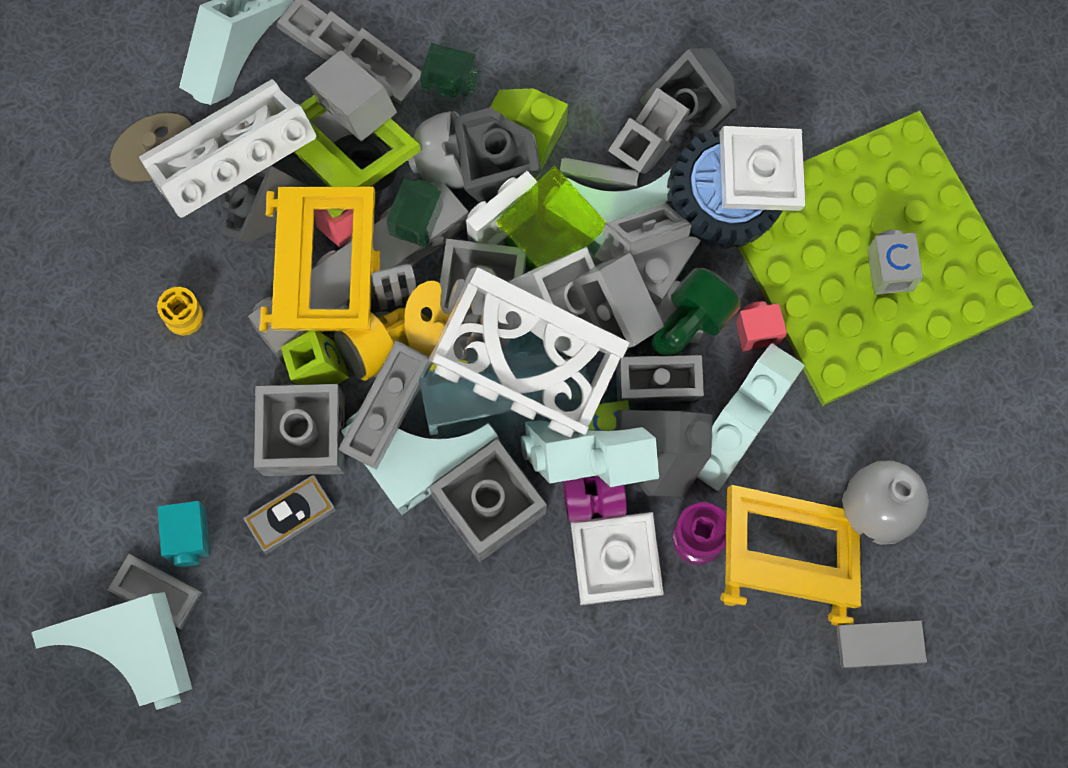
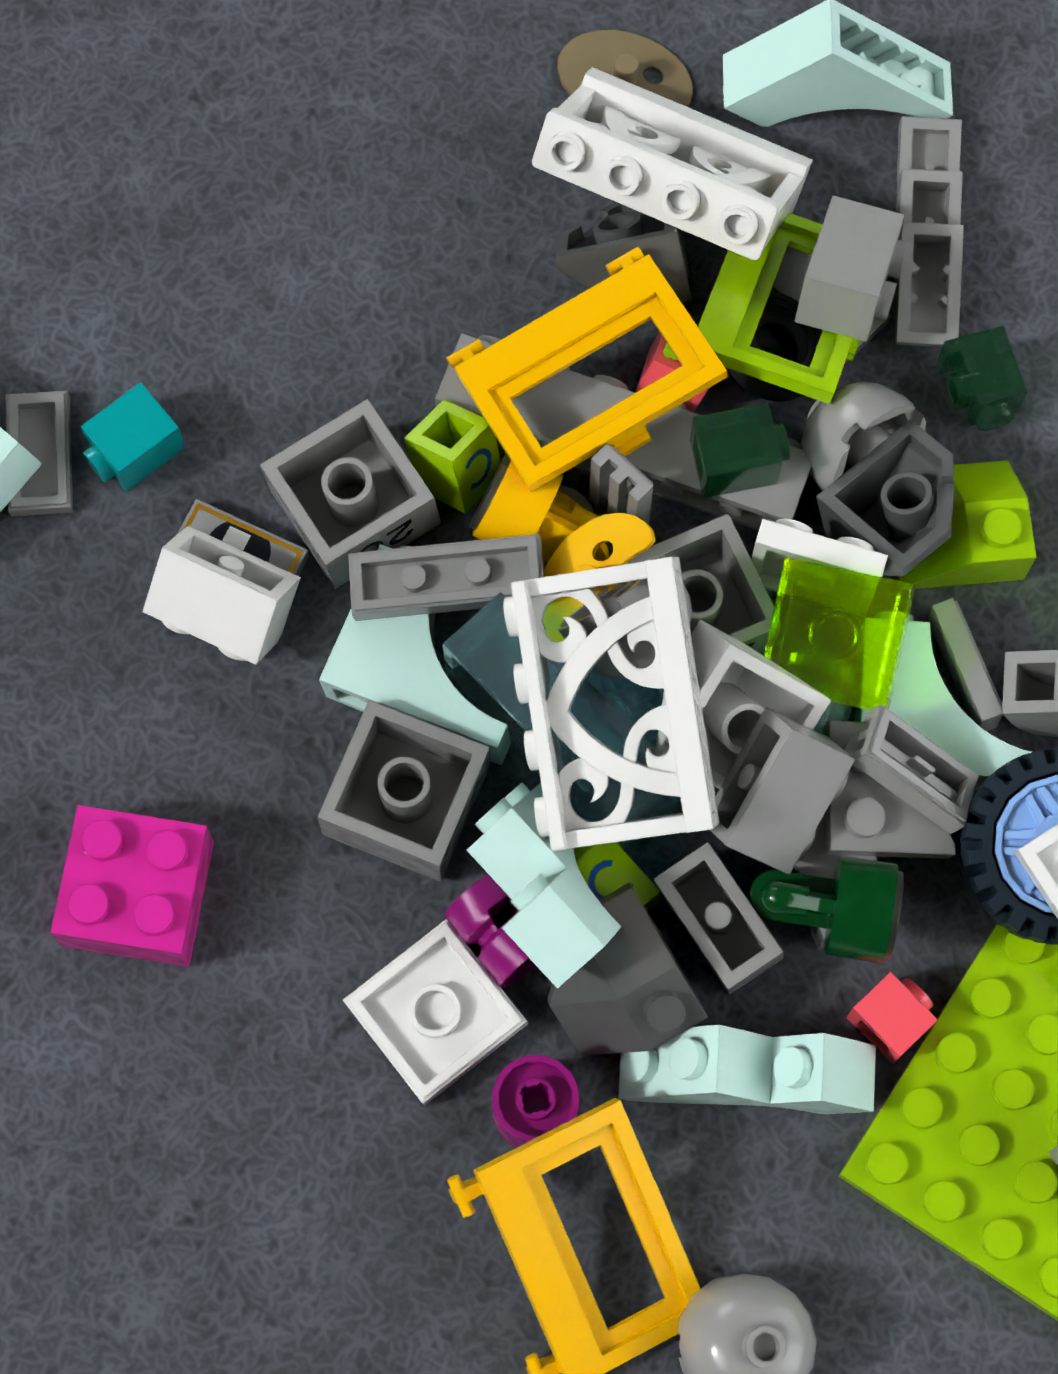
camera: 60 degrees right, 0 degrees up
(185, 318) = (421, 265): yellow wheel -> none
(311, 535) = (220, 595): none -> white brick
(448, 680) = (133, 886): none -> dark pink brick

